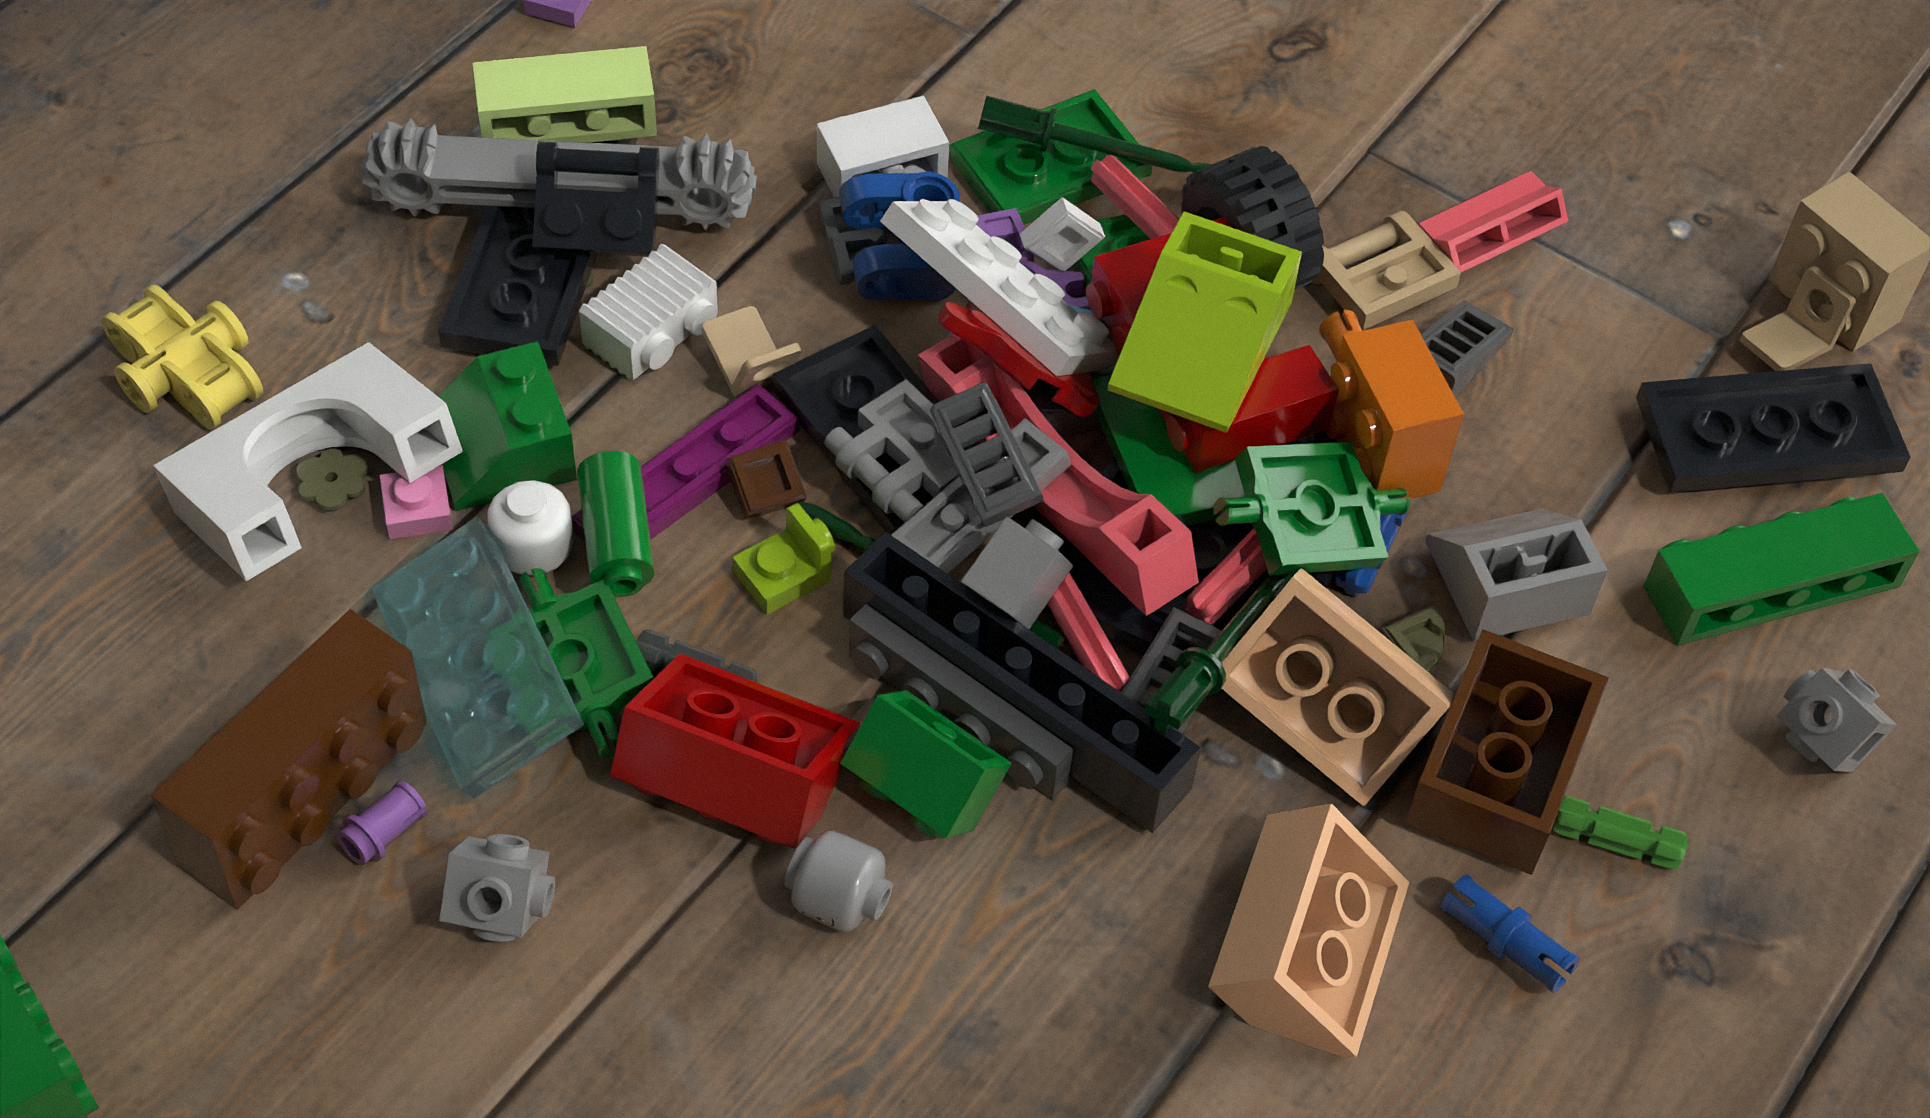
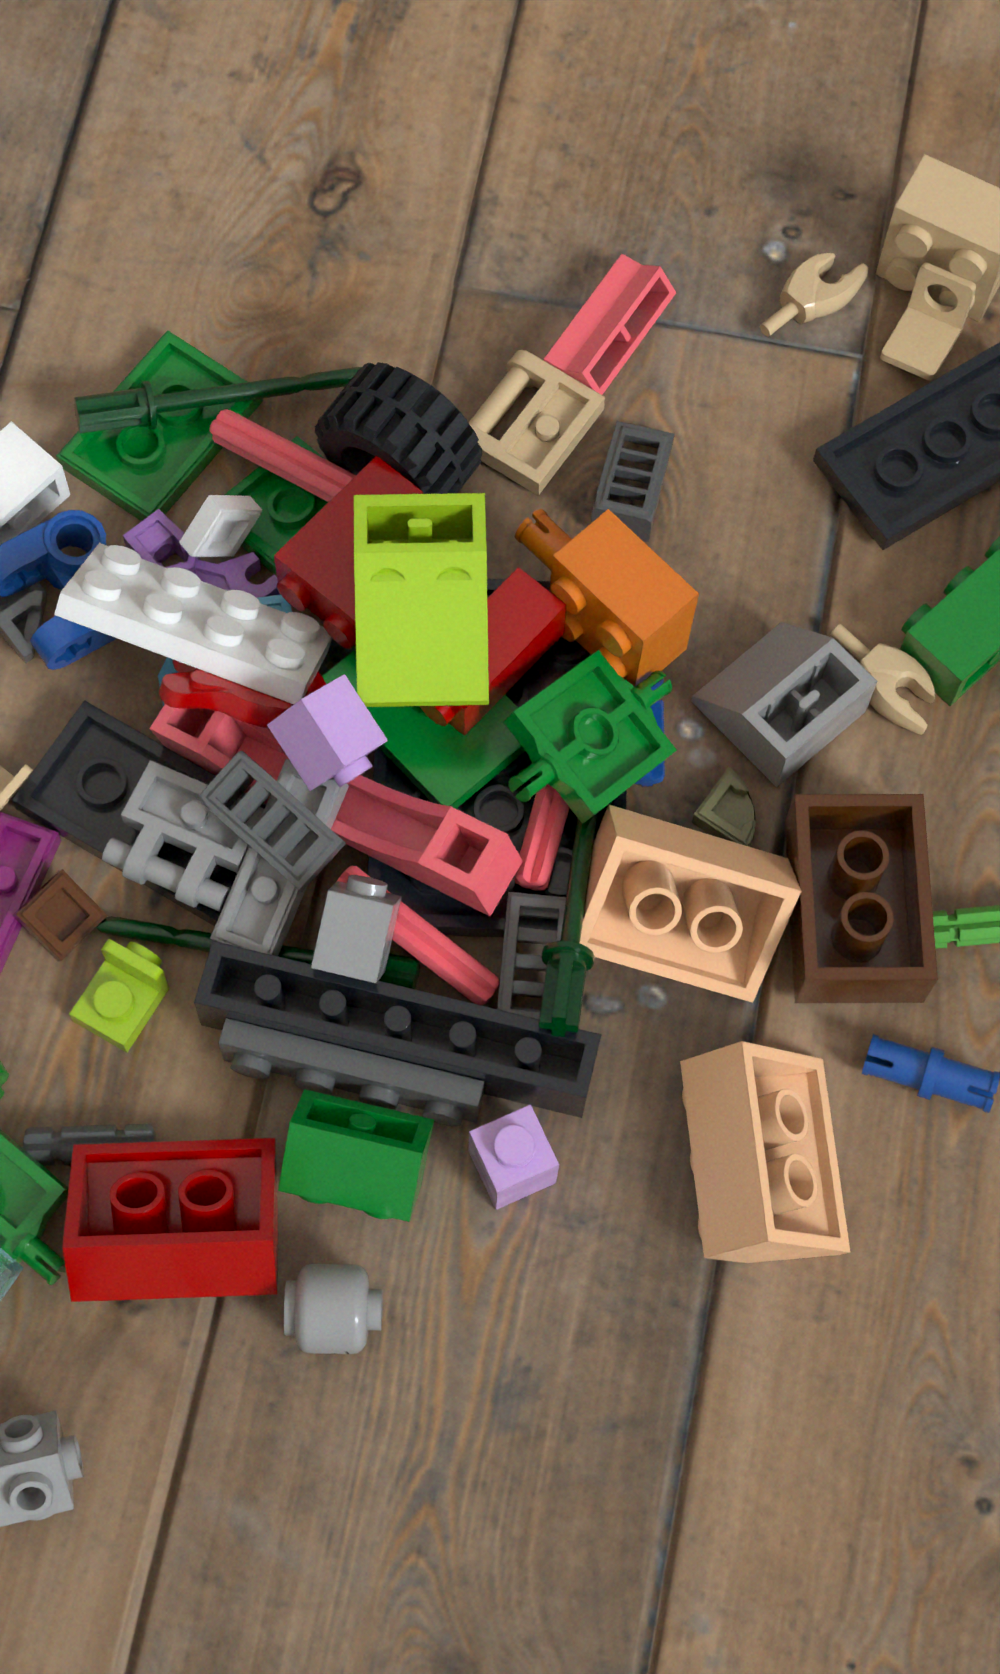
camera: 25 degrees left, 15 degrees up
(1069, 829) = (513, 1157): none -> lavender brick
(1070, 399) = (328, 734): none -> lavender brick
(1626, 589) = (892, 670): none -> tan hand
(1695, 268) = (809, 297): none -> tan hand

